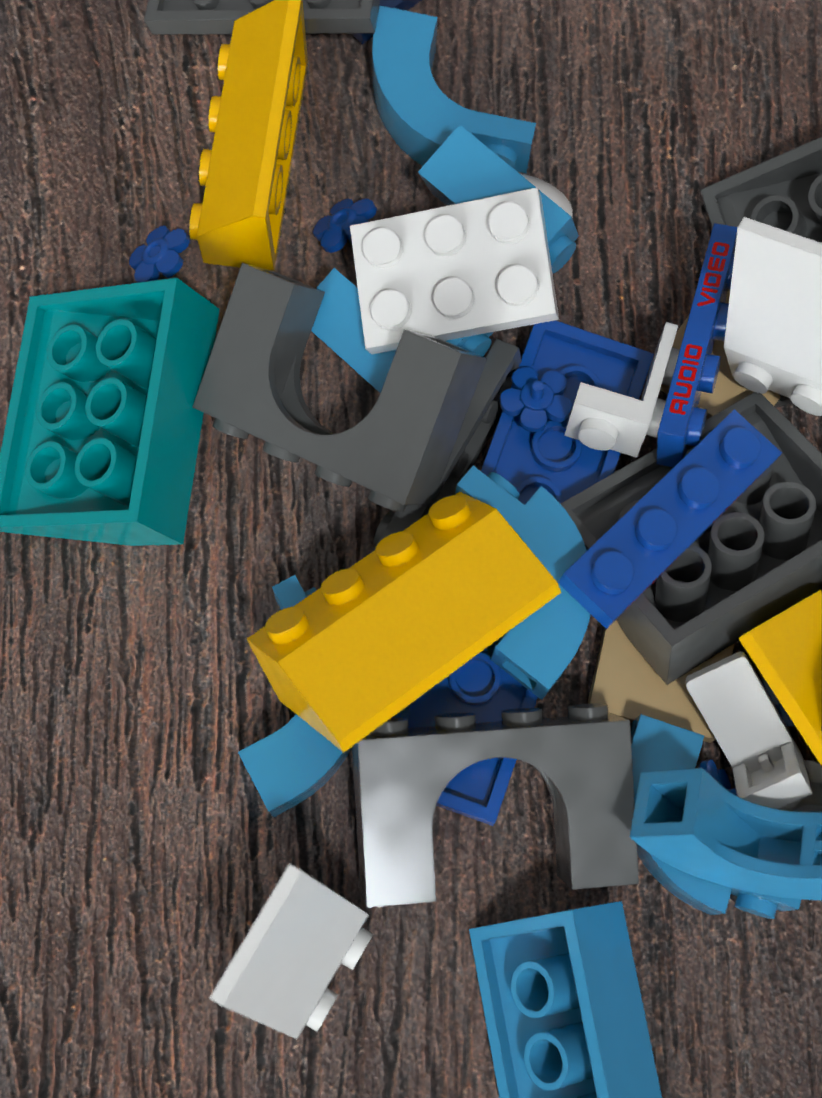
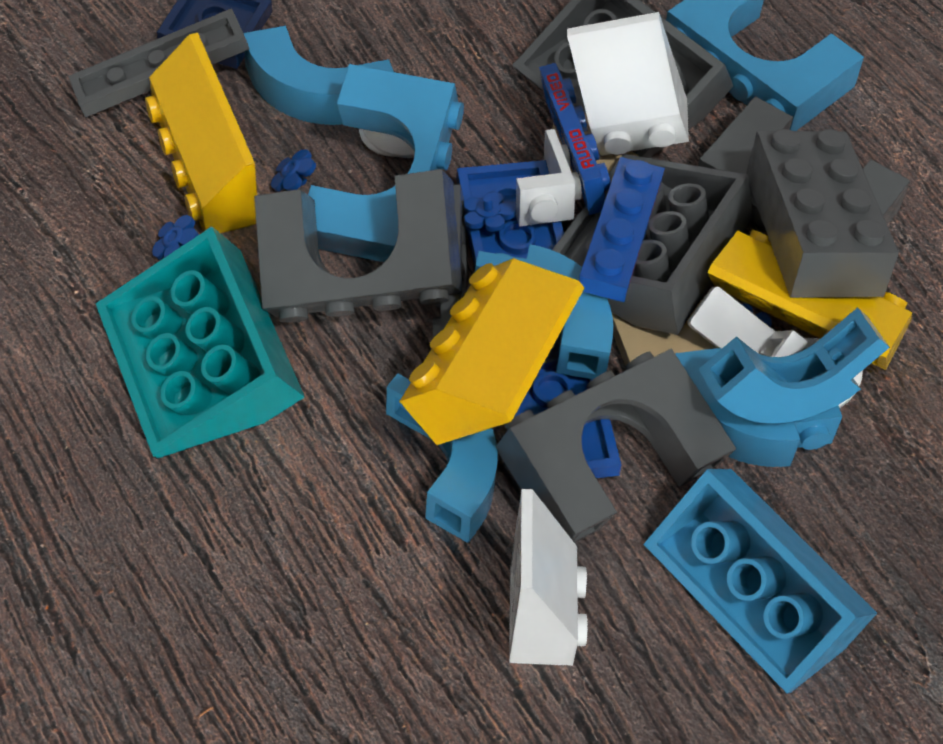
camera: 30 degrees left, 20 degrees down
(455, 270) = (399, 136): white plate -> none

